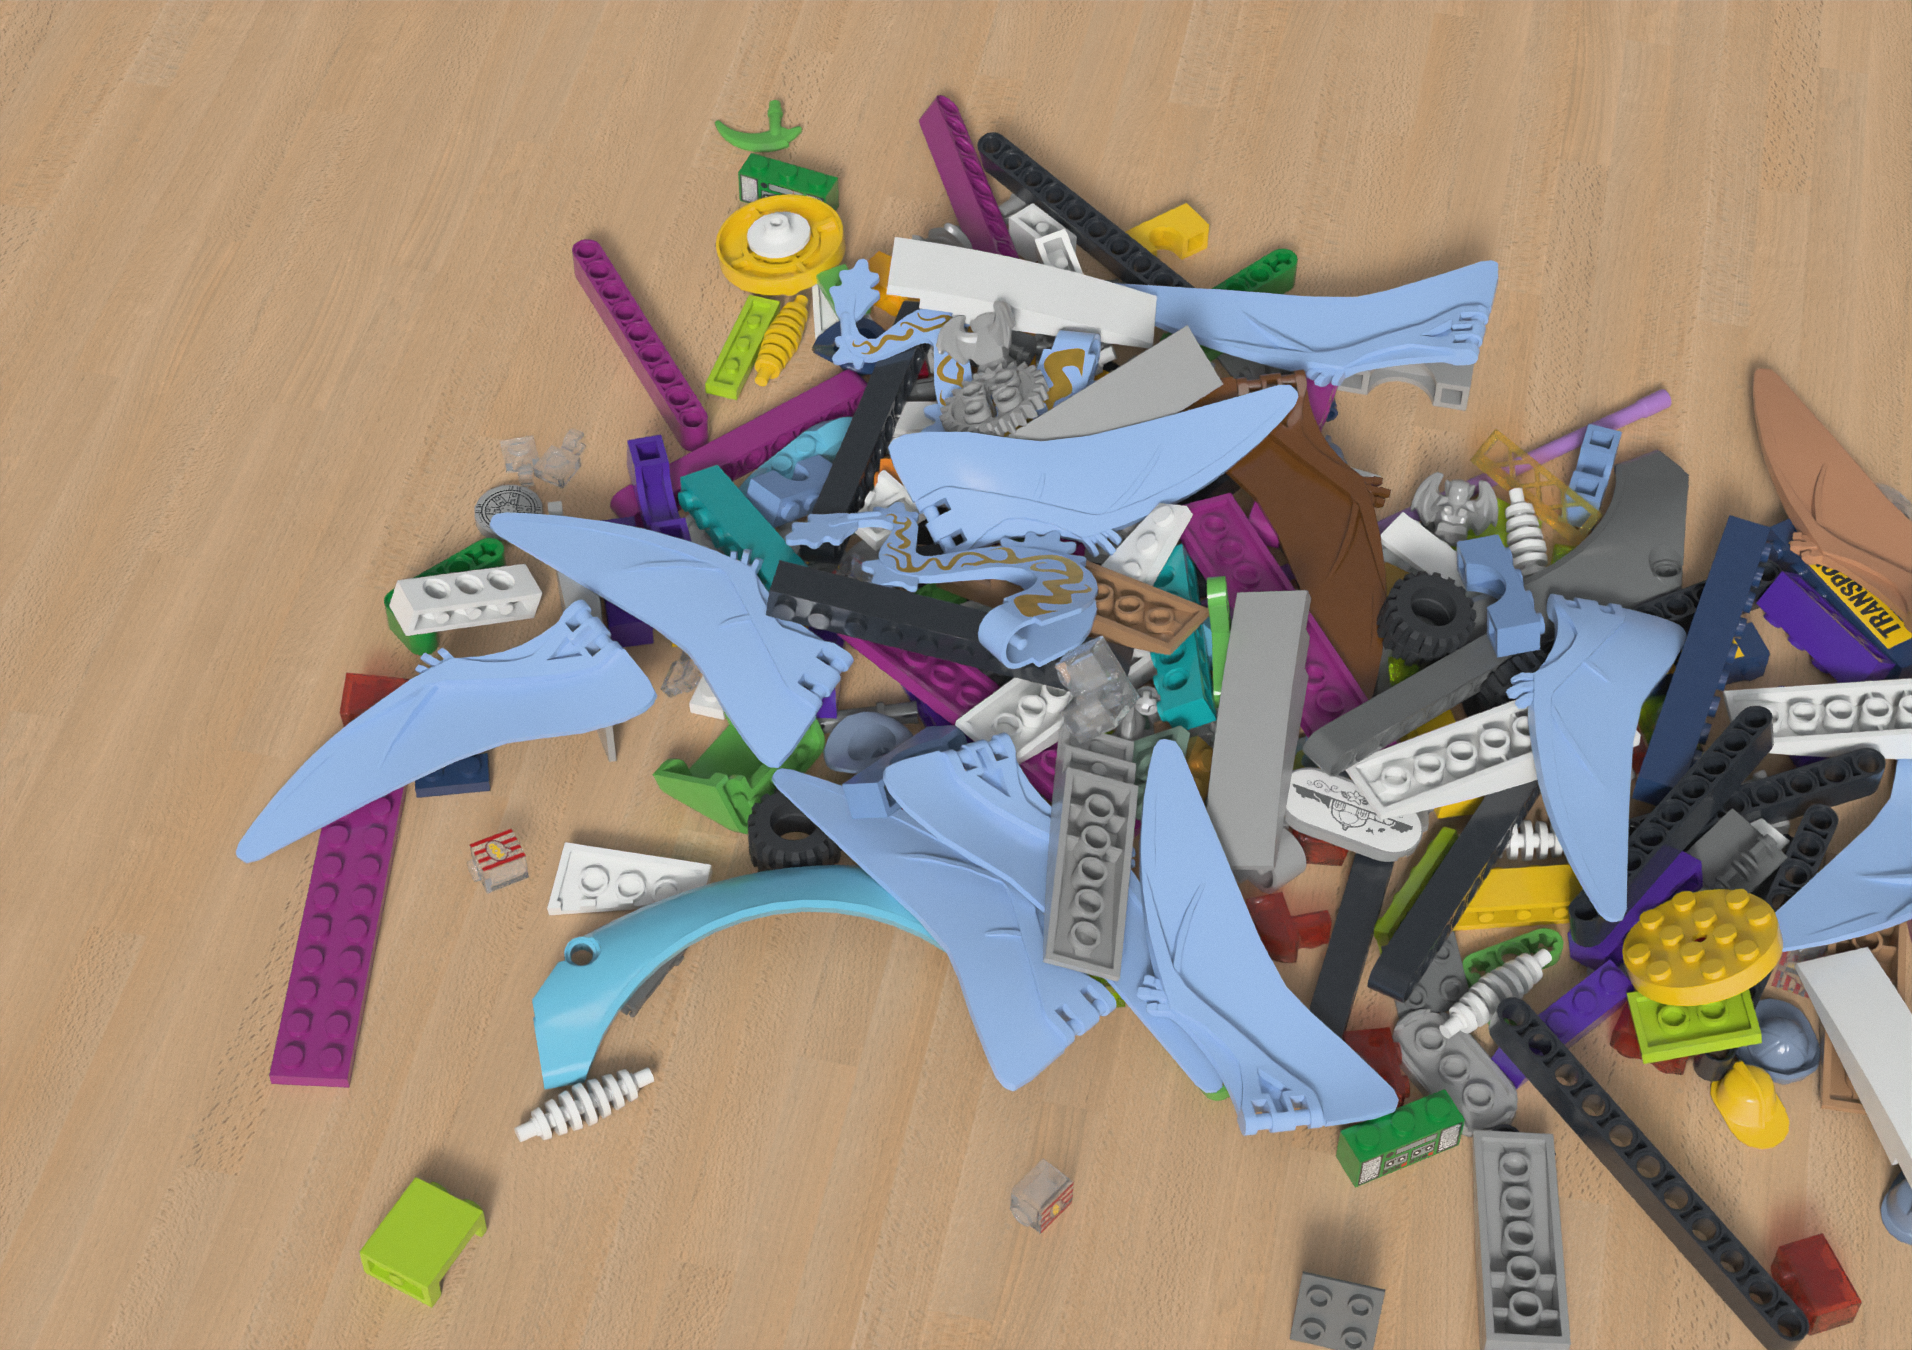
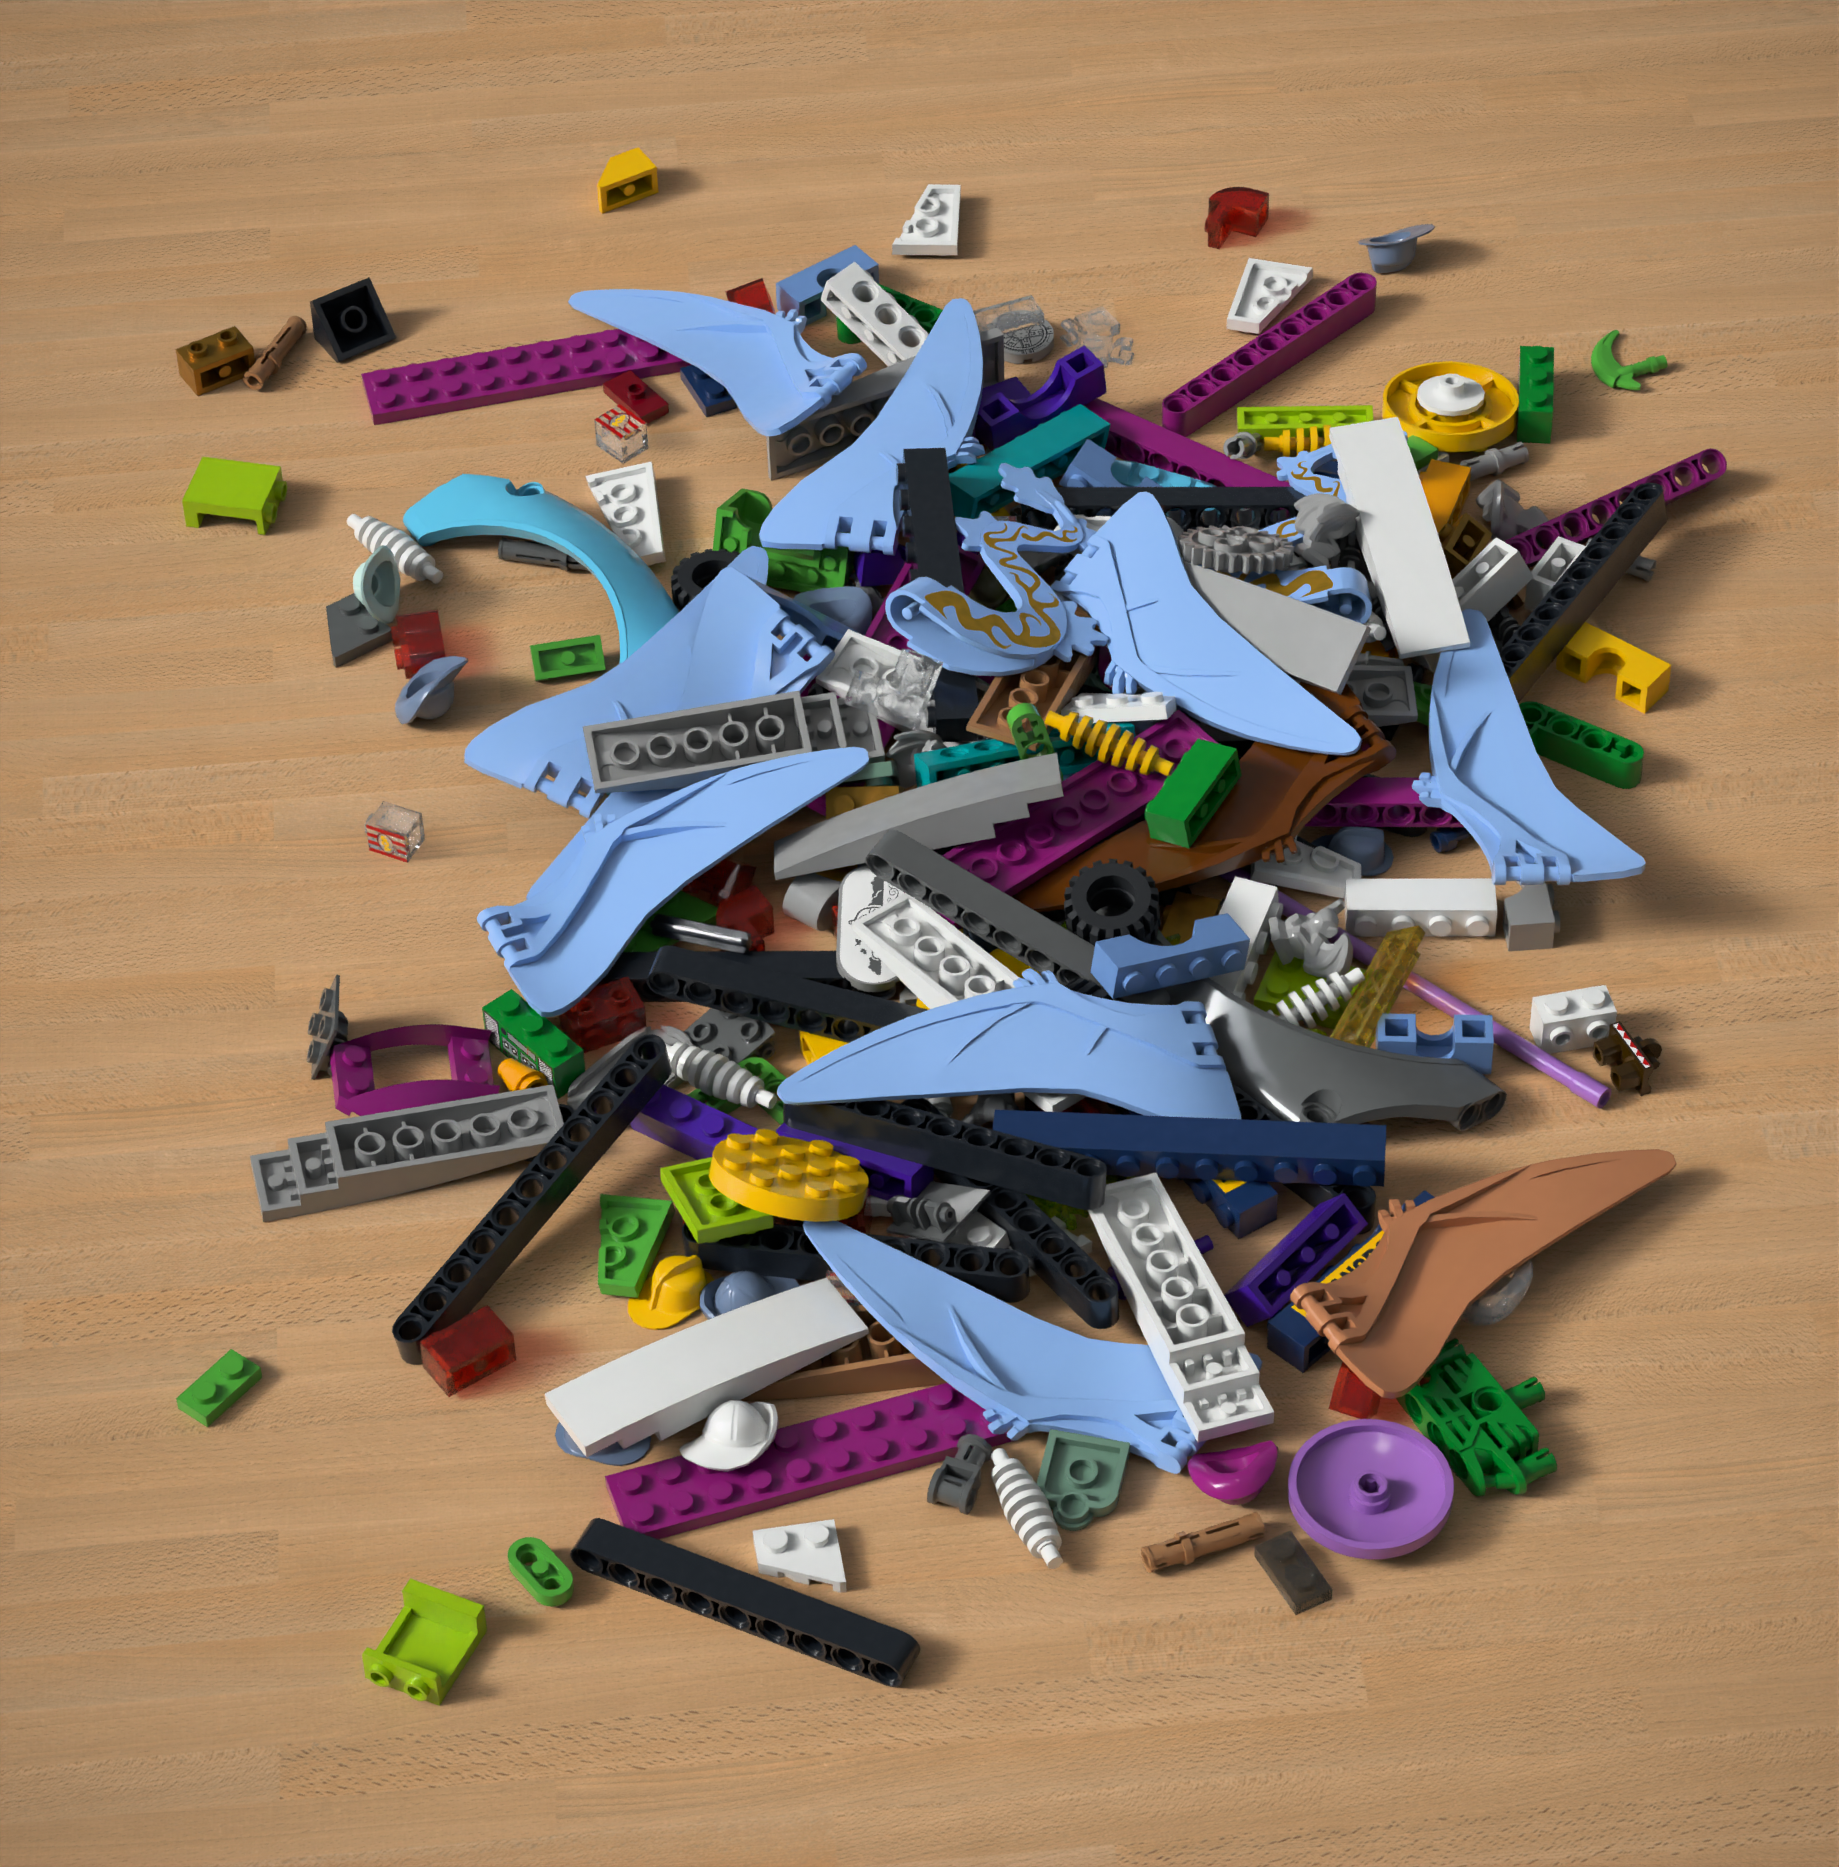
camera: 75 degrees right, 5 degrees down
(75, 761) = (626, 180): none -> yellow slope
(171, 1213) = (215, 360): none -> pearl gold brick
(184, 1065) = (350, 320): none -> black slope
(196, 1160) = (269, 360): none -> medium nougat pin
(299, 532) = (933, 225): none -> white wing
(346, 617) = (806, 287): none -> medium blue arch
(422, 311) = (1235, 210): none -> clear red brick
(435, 839) = (636, 396): none -> dark red plate
(490, 498) = (1010, 315): none -> clear plate
(535, 214) = (1396, 249): none -> sand blue piece
(544, 326) = (1264, 292): none -> white wing
(656, 1121) = (378, 585): none -> light aqua hat
(690, 1173) = (354, 630): none -> dark grey wing
(754, 1111) = (419, 640): none -> clear red brick
(768, 391) = (1242, 445): none -> light grey axle
(831, 986) = (567, 657): none -> bright green plate
(839, 1112) = (430, 690): none -> sand blue hat
(857, 240) = (1495, 460): none -> light grey pin
(1215, 559) = (1109, 743): none -> yellow piece
(1296, 523) = (1193, 793): none -> green brick
(1310, 948) = (701, 933): none -> black axle
(1414, 441) = (1435, 905): none -> white brick
(1423, 1206) = (468, 1061): none -> magenta wedge
(1442, 1162) = (519, 1076): none -> light orange cone
(1580, 386) = (1571, 1019): none -> white brick
(1631, 366) = (1634, 1058): none -> dark brown hips
(1687, 1121) = (630, 1241): none -> bright green wing

